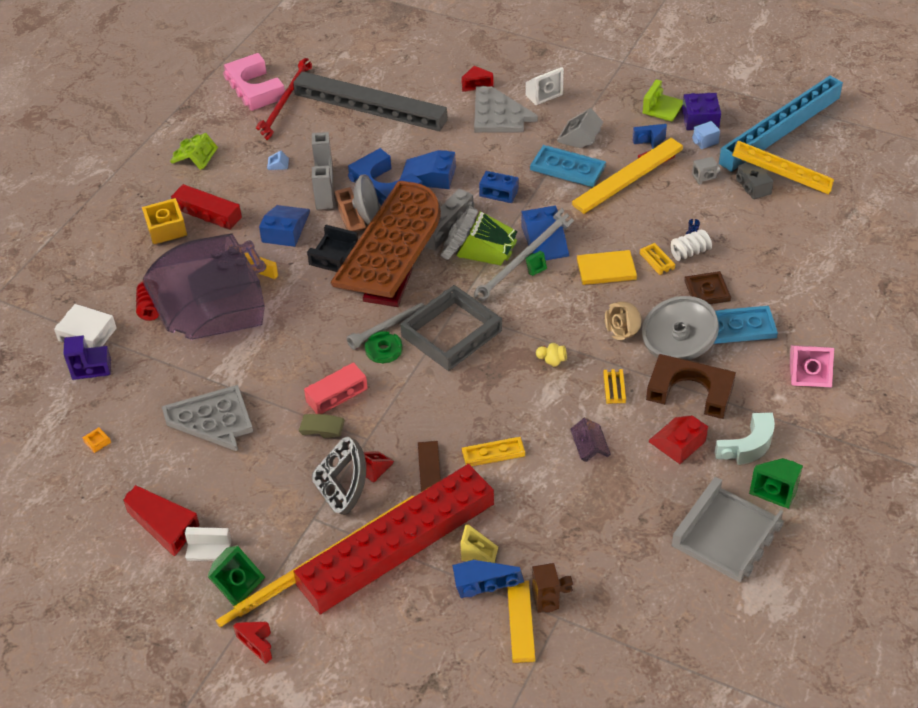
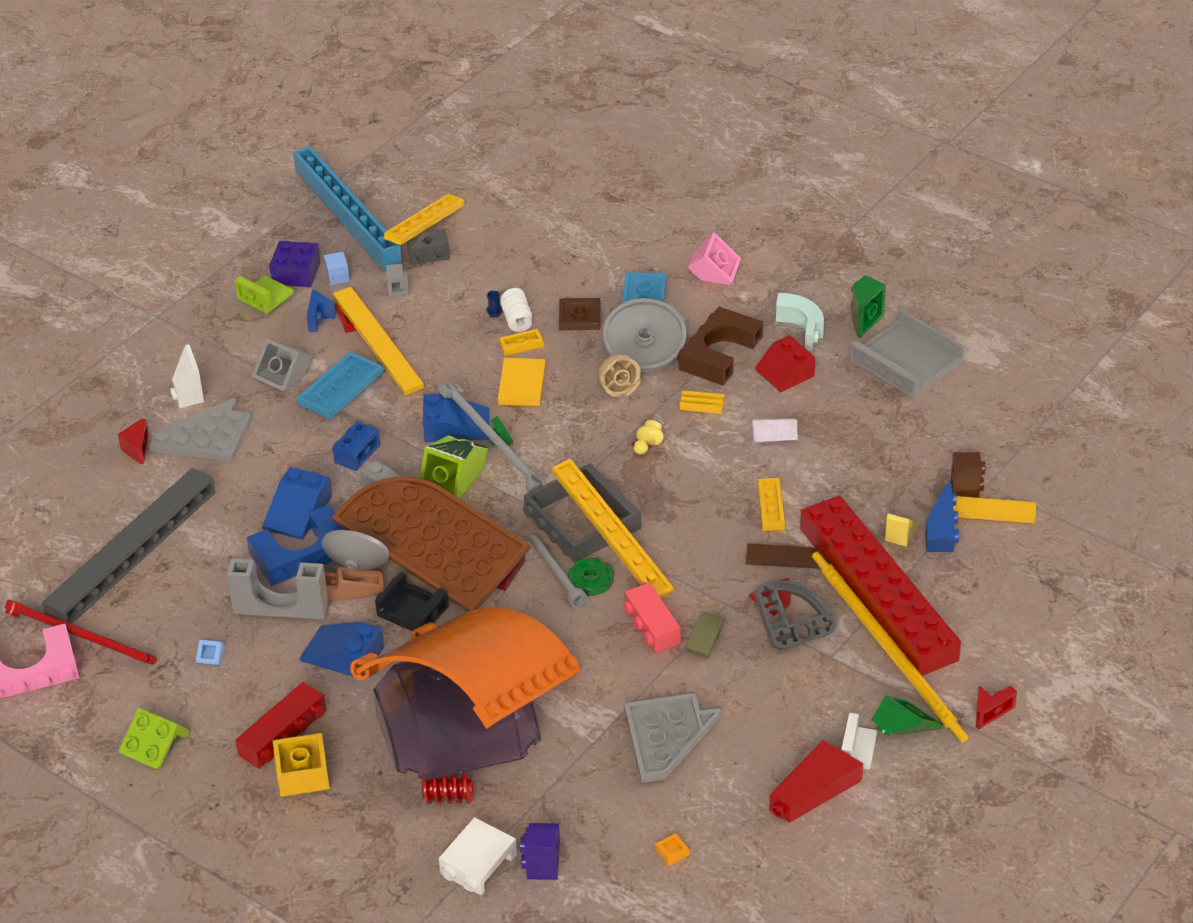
camera: 80 degrees left, 5 degrees down
(234, 277) = (491, 654): none -> orange panel
(420, 343) = (611, 527): none -> yellow tile
(459, 232) = (447, 472): light grey gear -> none

